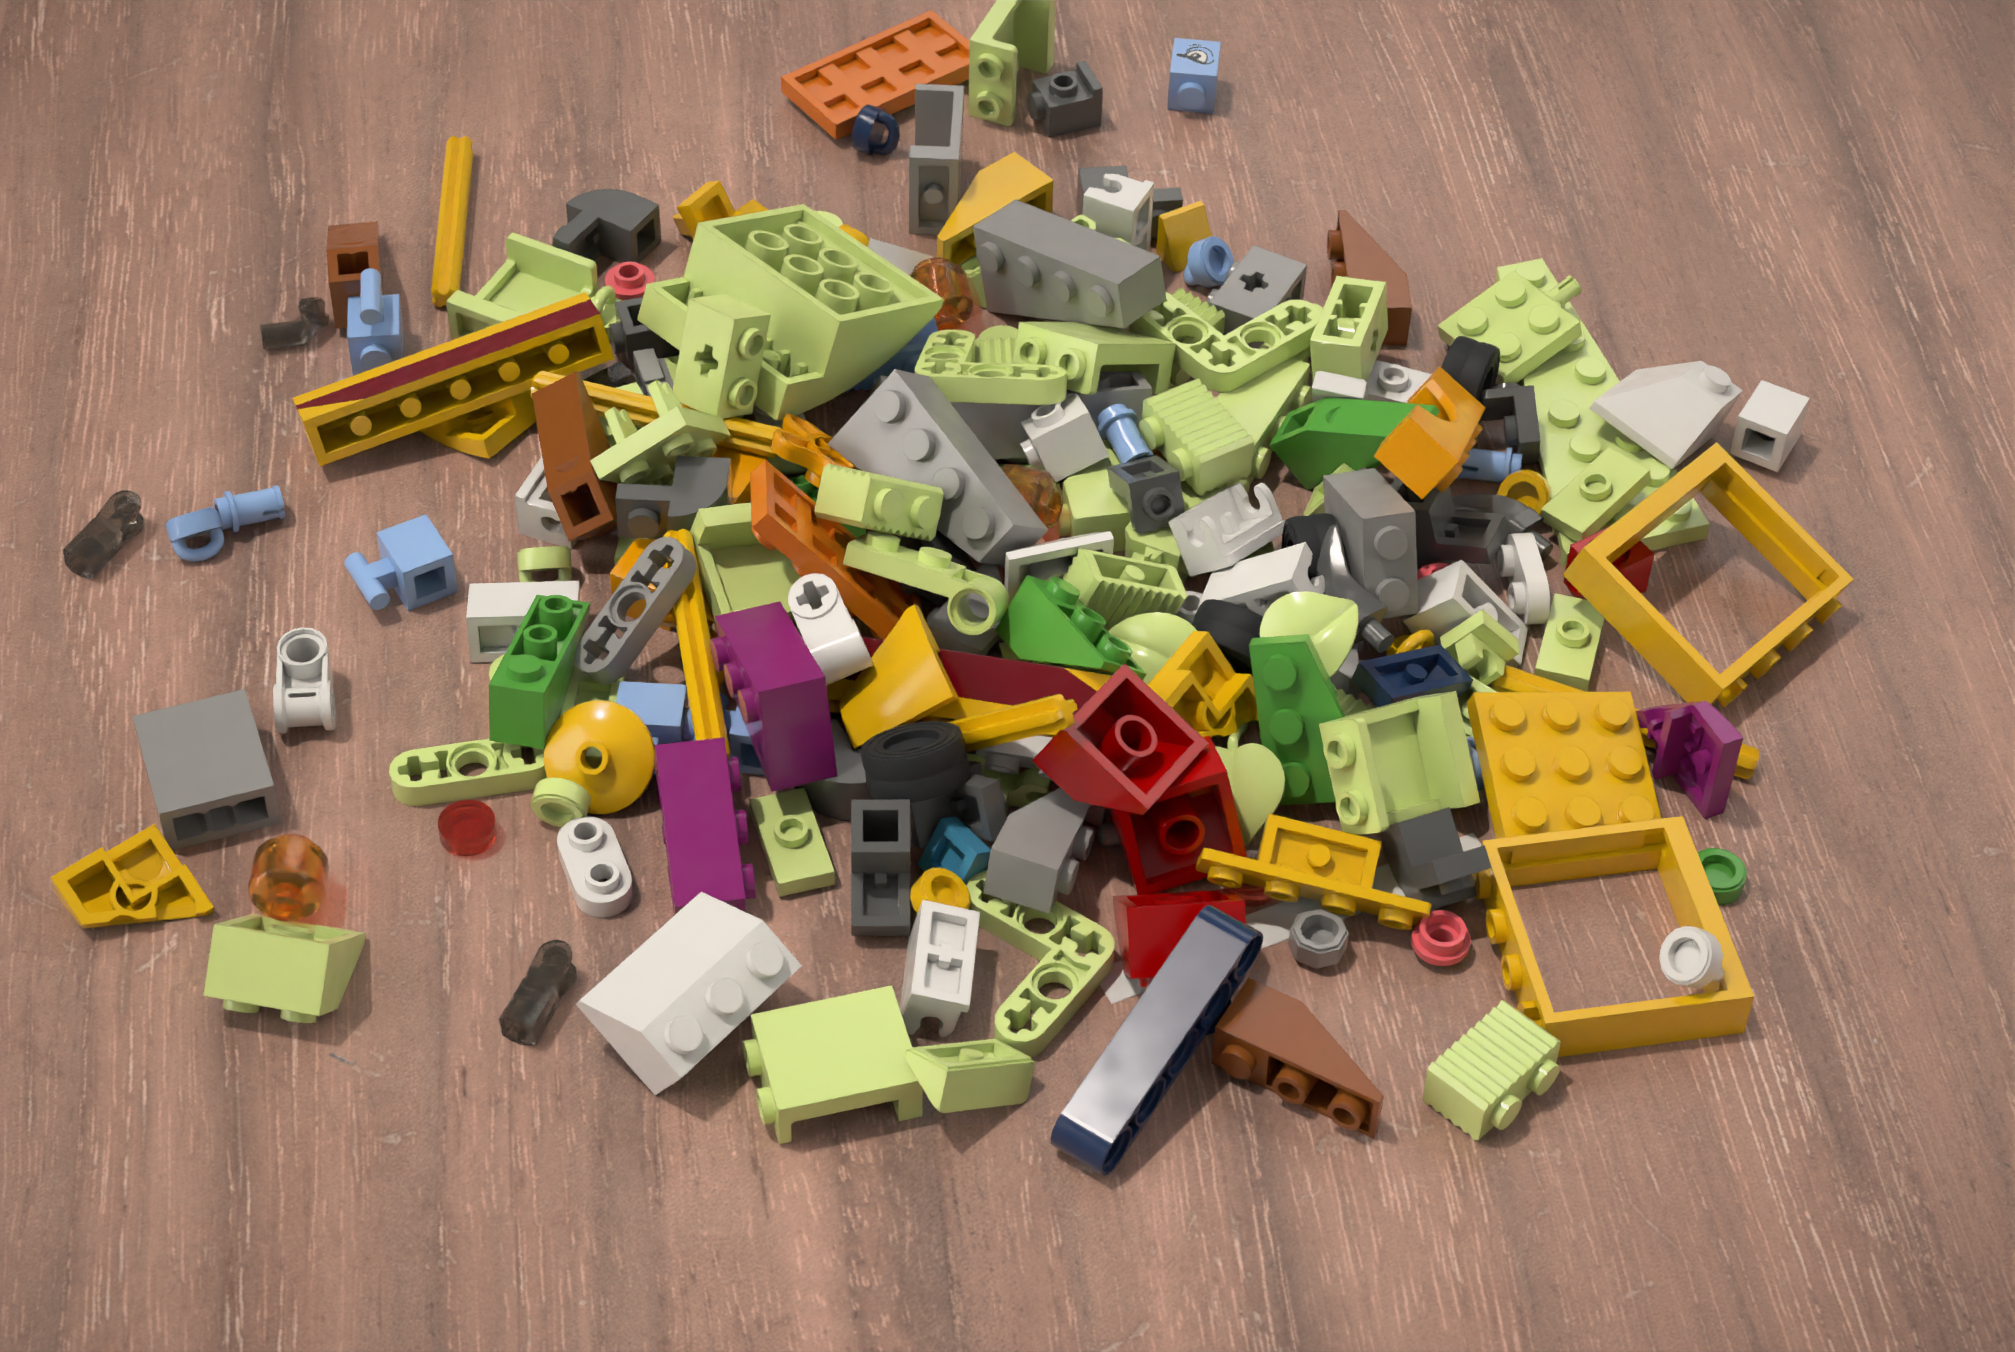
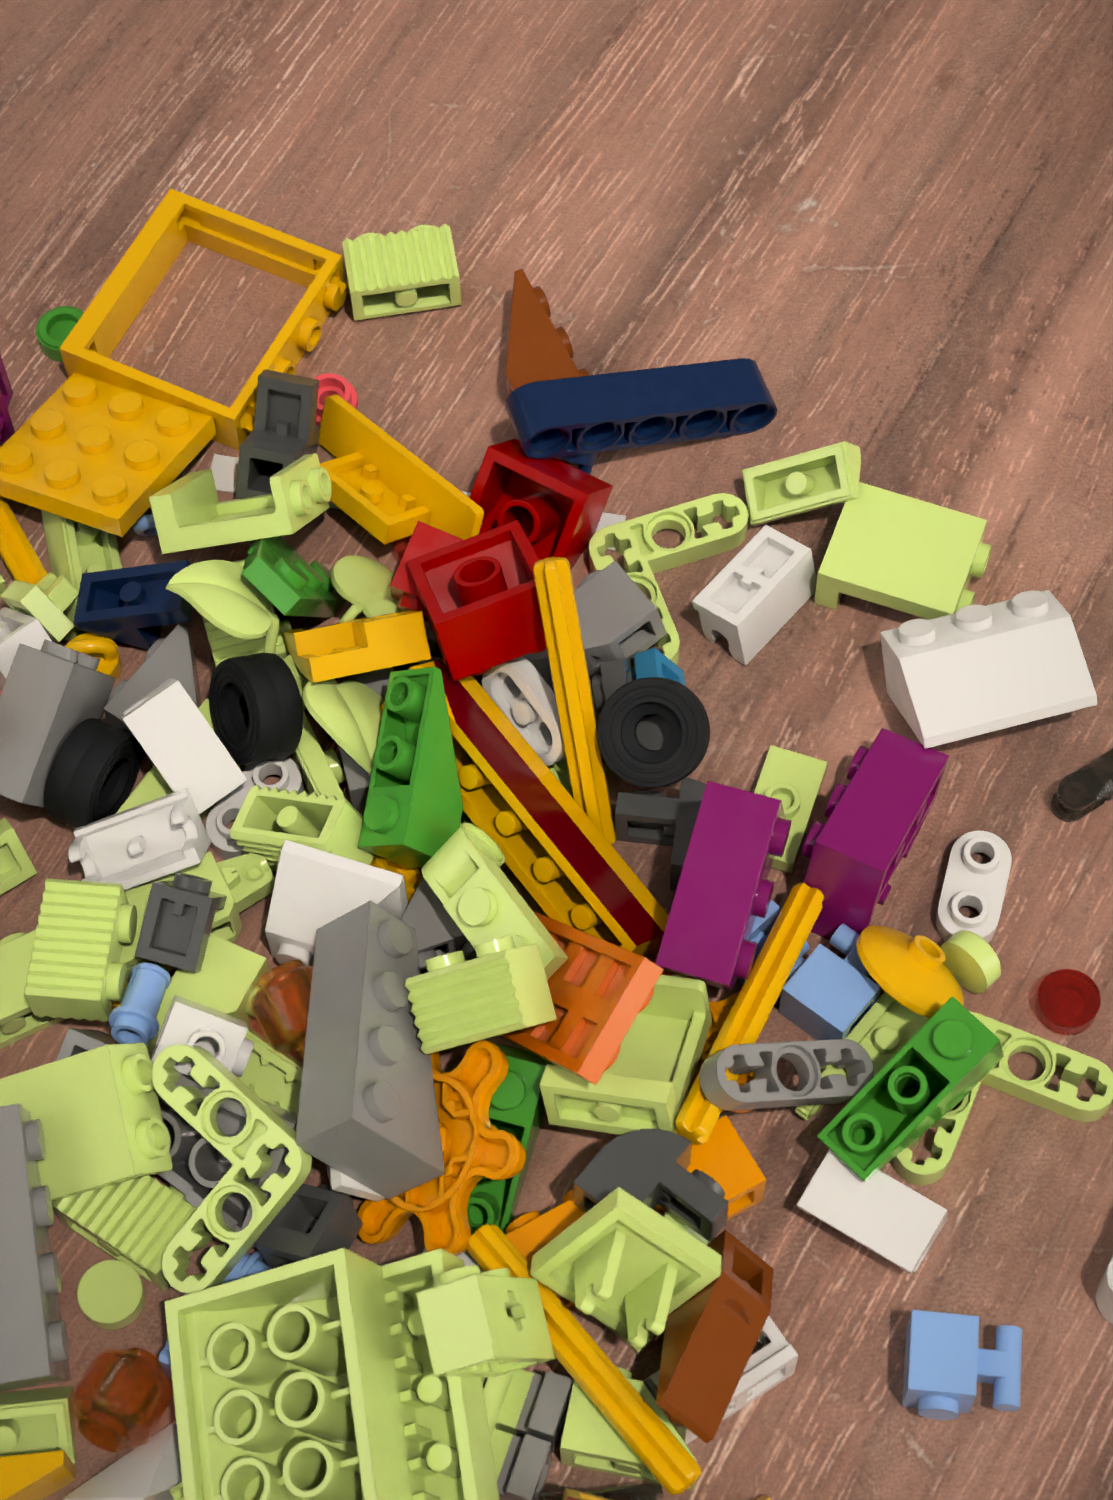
camera: 140 degrees left, 15 degrees up
(544, 559) = (806, 1279): yellowish green tile -> none
(828, 627) = (636, 893): white piece -> none
(880, 867) = (742, 697): dark grey brick -> none
(900, 685) = (606, 828): yellow slope -> none
(940, 887) = (705, 656): yellow tile -> none
(1318, 938) = (430, 446): light grey tile -> none
(1342, 585) = (128, 676): dark grey bar -> none
(1691, 957) = (192, 220): white tile -> none

